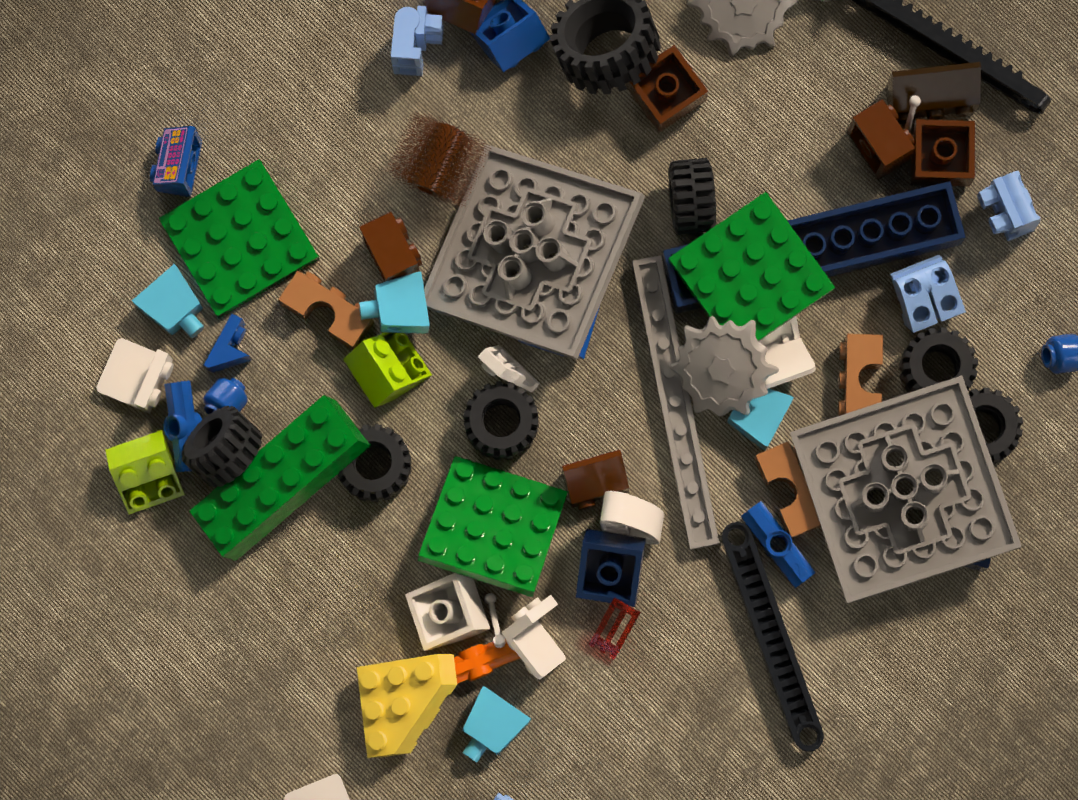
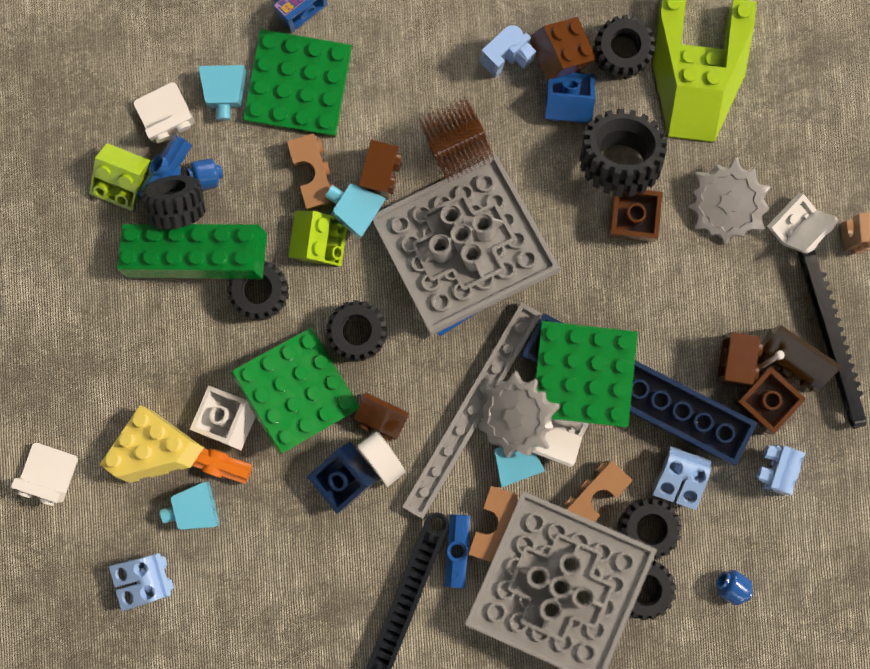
camera: 35 degrees right, 5 degrees up
(223, 353) = (227, 144): blue slope -> none
(498, 640) = (238, 463): white hinge -> none
(500, 363) = (387, 301): white wing -> none
(532, 641) = (258, 480): white bracket -> none
(605, 644) = (302, 519): clear red tile -> none
(692, 195) = (591, 294): black tyre -> none

